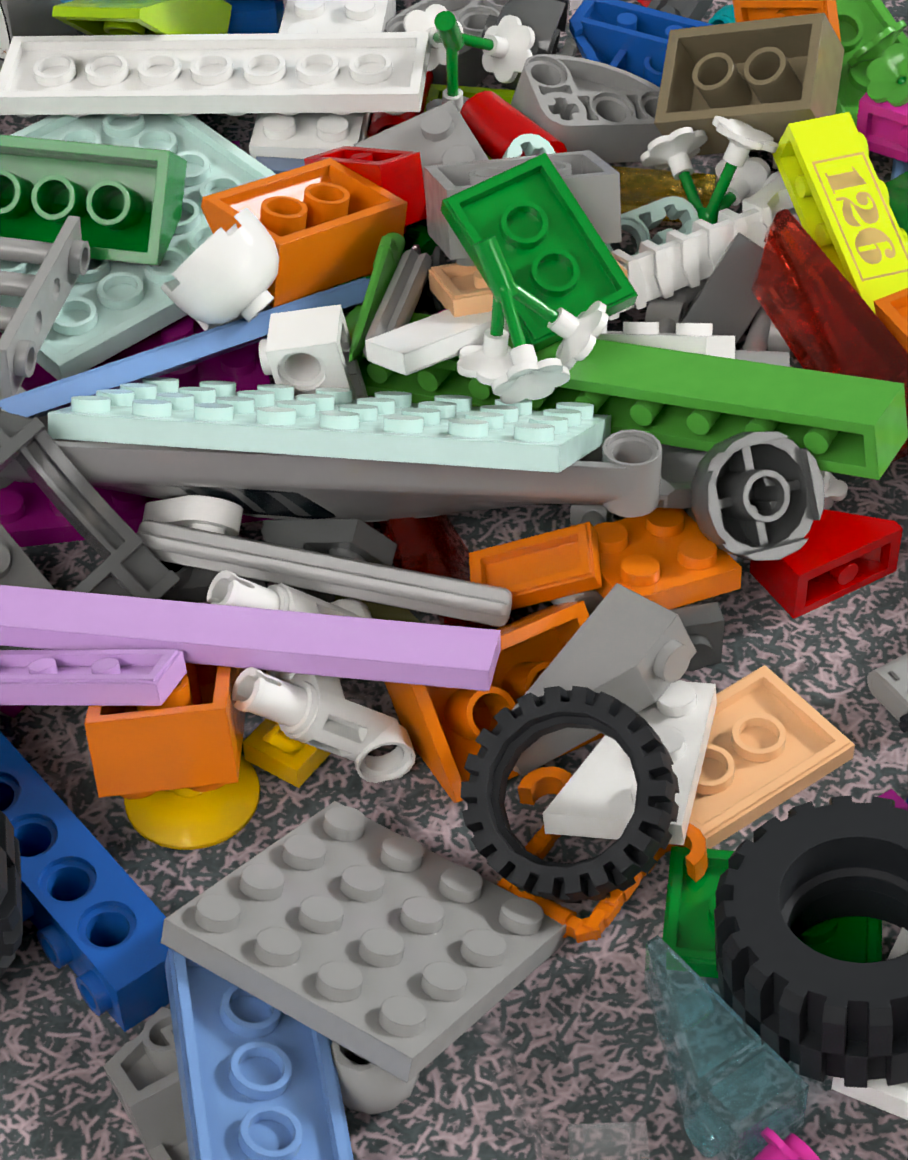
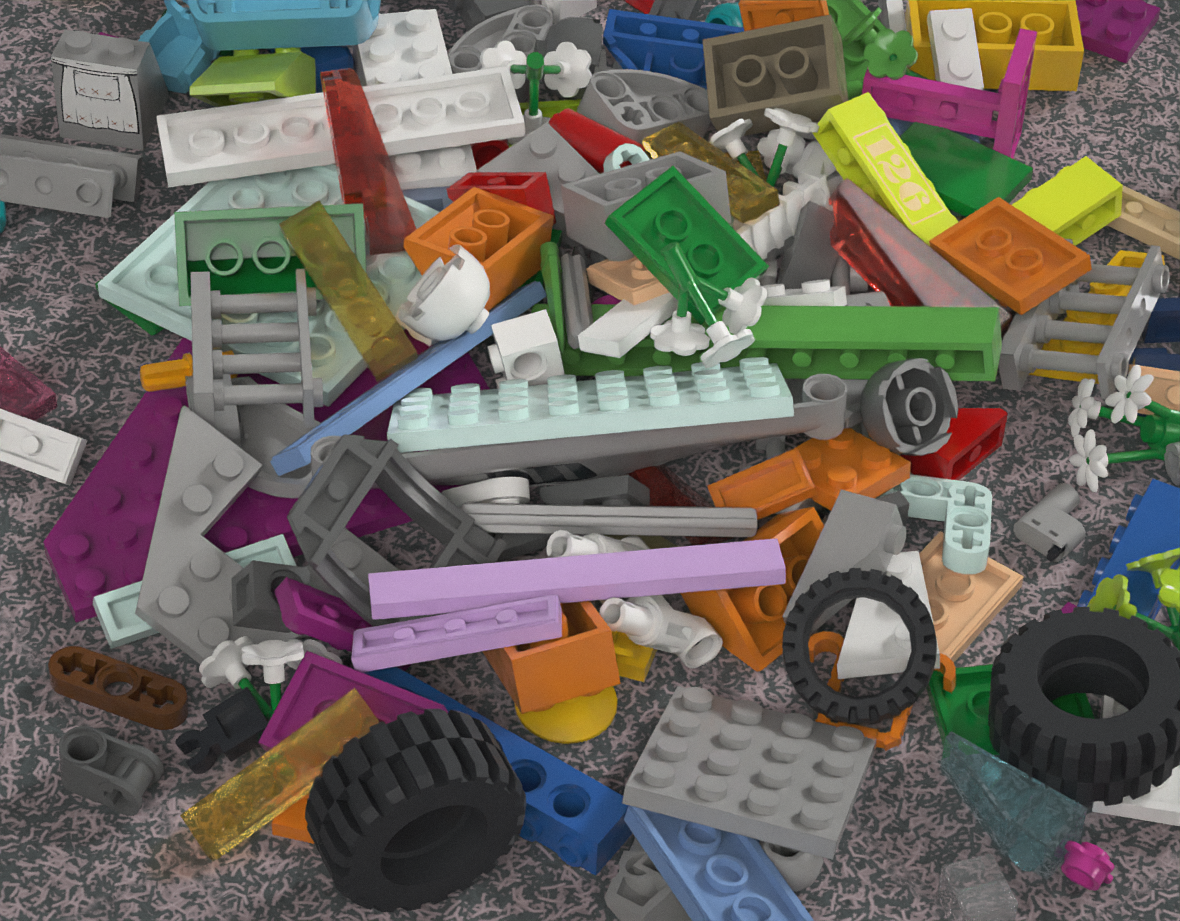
camera: 20 degrees left, 0 degrees up
(118, 248) = (348, 291): none -> clear yellow plate
(208, 106) = (364, 164): none -> clear red wedge
(648, 200) = (747, 192): none -> clear yellow plate
(791, 659) = (966, 515): none -> light aqua beam

